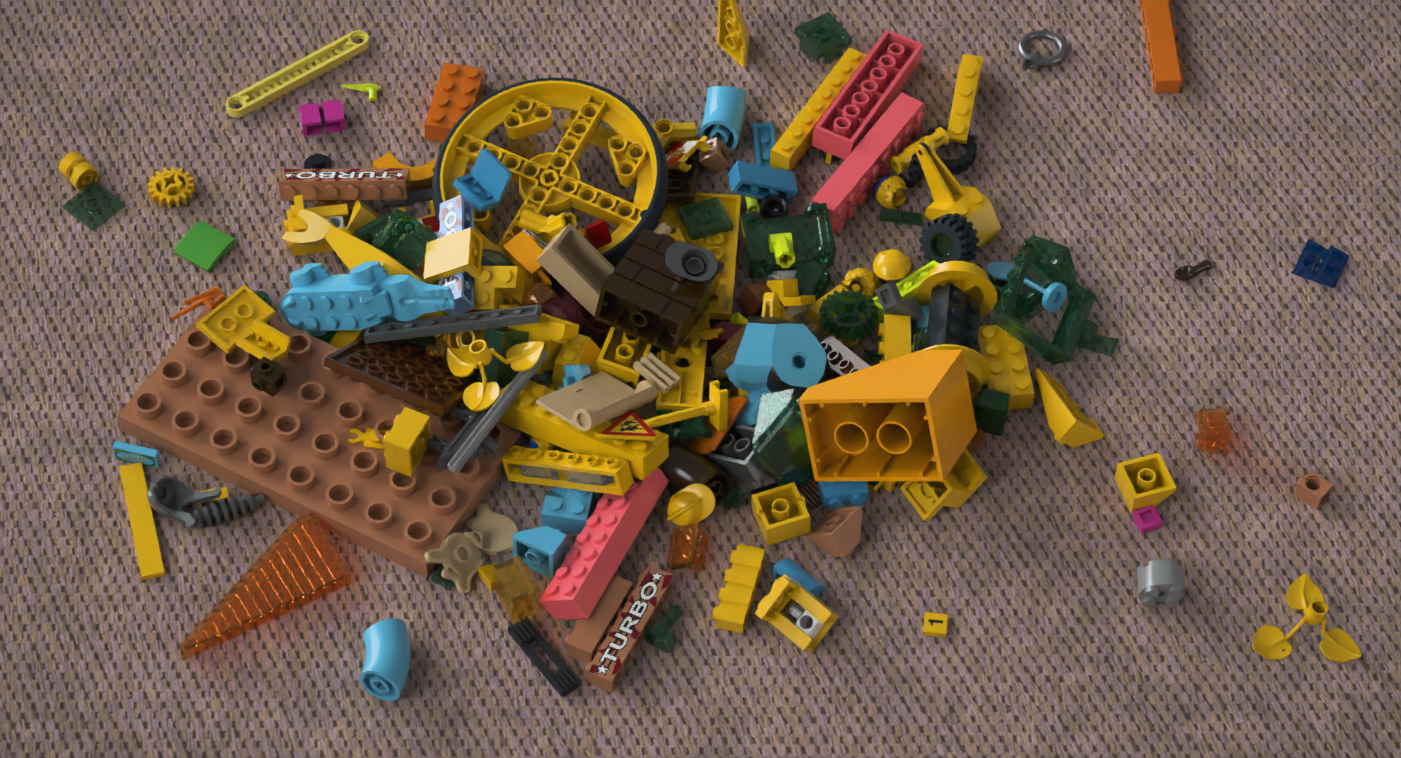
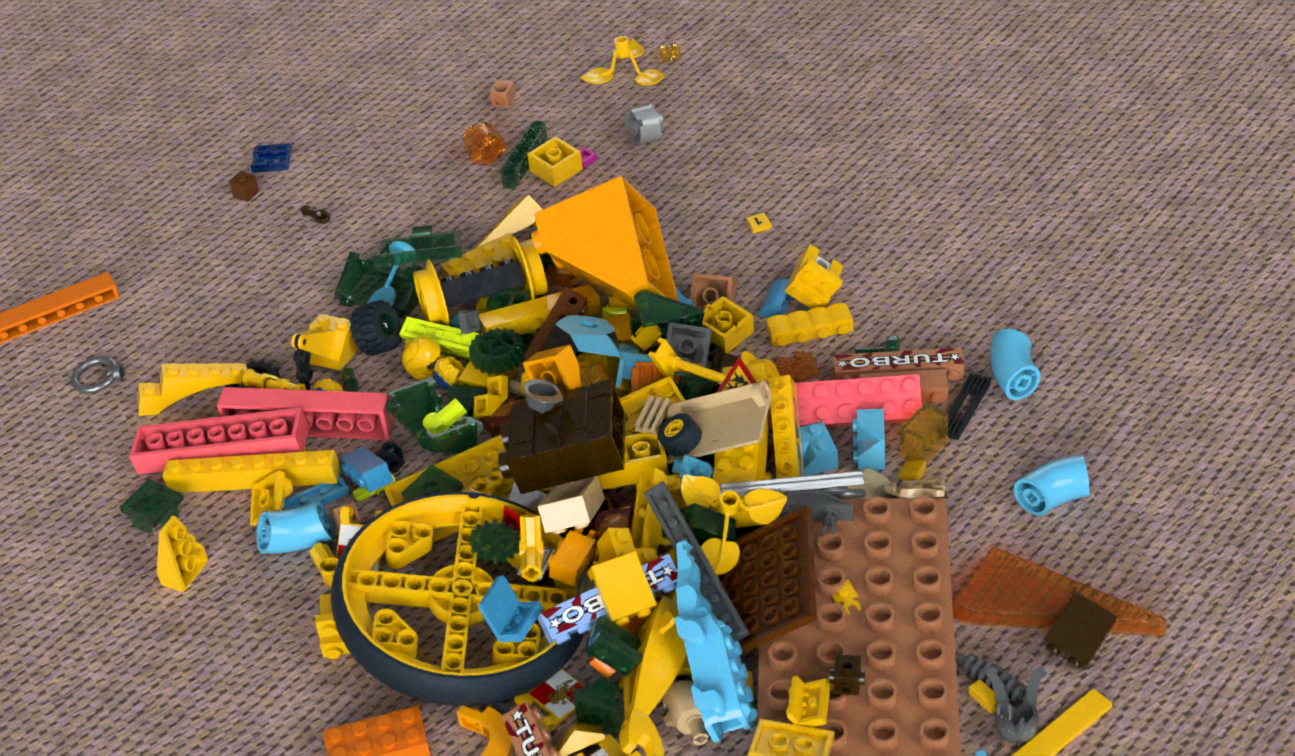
camera: 110 degrees left, 10 degrees down
(213, 579) = (1079, 631): none -> dark brown brick
(407, 441) = (849, 532): yellow brick -> none
(504, 499) = (846, 493): none -> flat silver piece
(563, 712) = (1013, 363): none -> medium azure brick
(576, 200) = (494, 541): none -> clear green gear
(610, 375) = (679, 435): none -> black wheel
(737, 300) = (555, 366): none -> light orange slope
(777, 115) = (269, 495): none -> yellow slope
(1184, 467) = (517, 163): none -> clear green beam
(1270, 221) = (244, 186): none -> reddish brown brick
(1303, 675) = (672, 54): none -> clear yellow wheel

